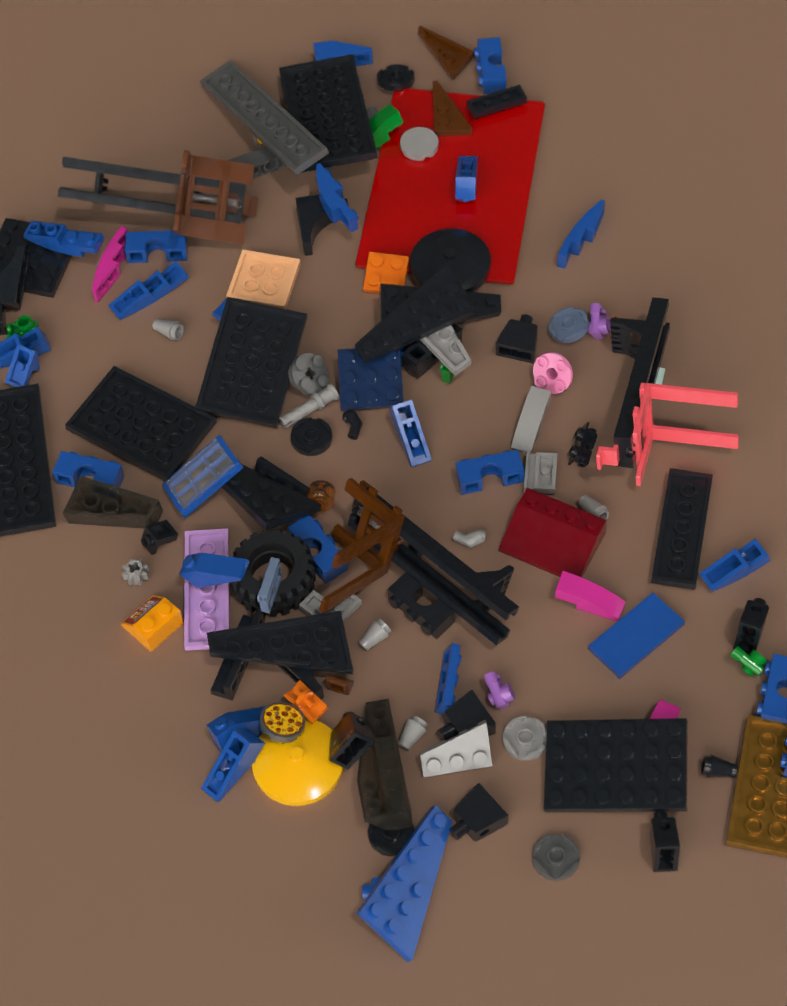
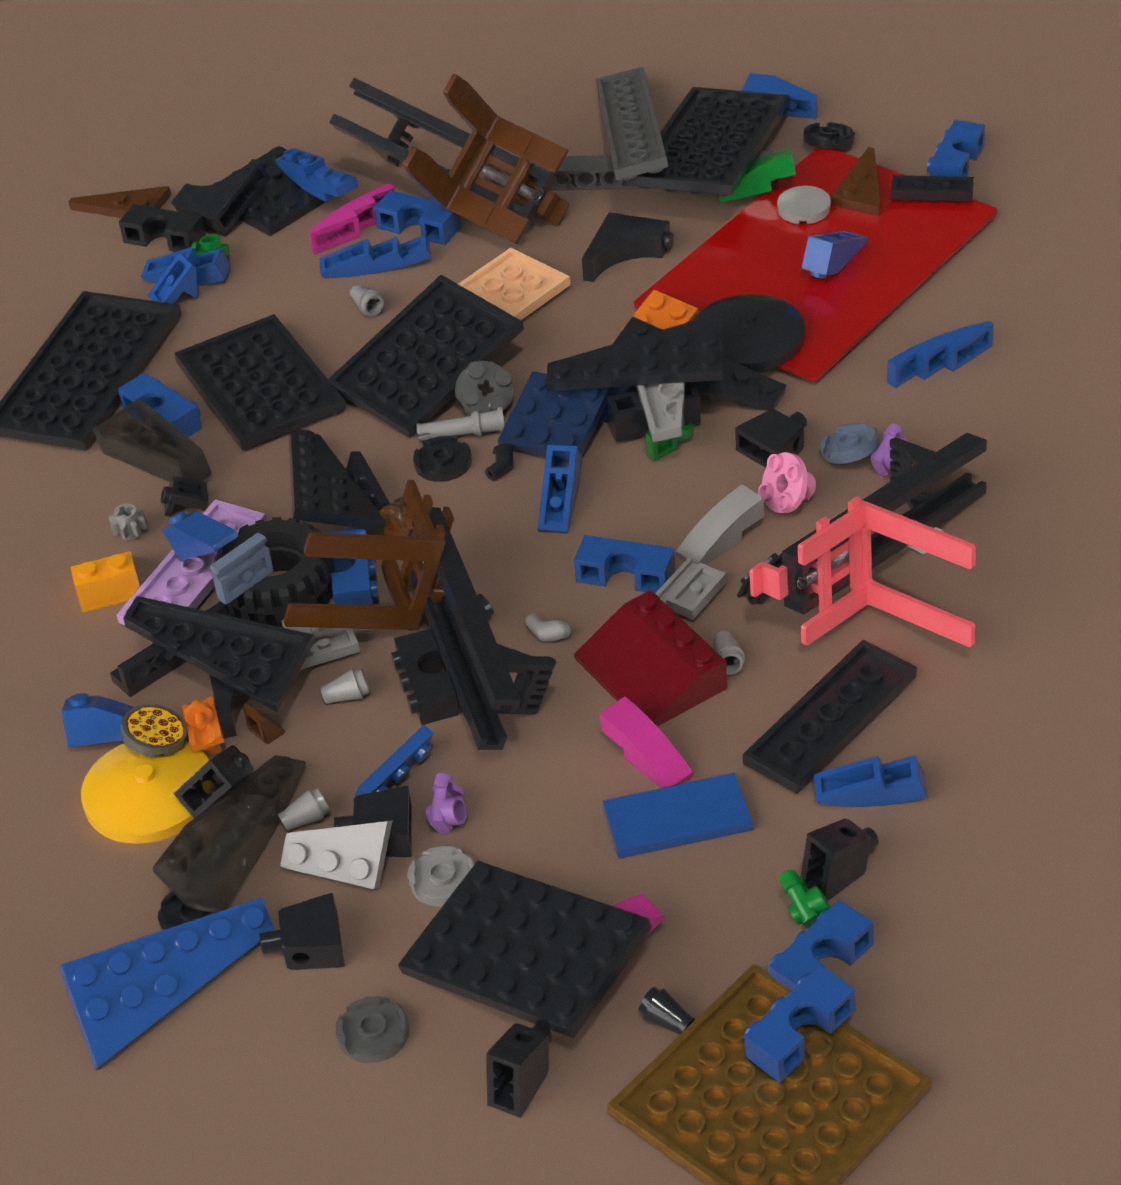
camera: 30 degrees right, 15 degrees down
(202, 476) = (275, 447): clear piece -> none
(232, 763) = (72, 750): blue slope -> none
(332, 201) = (647, 220): blue slope -> none
(450, 54) = (913, 129): reddish brown wing -> none

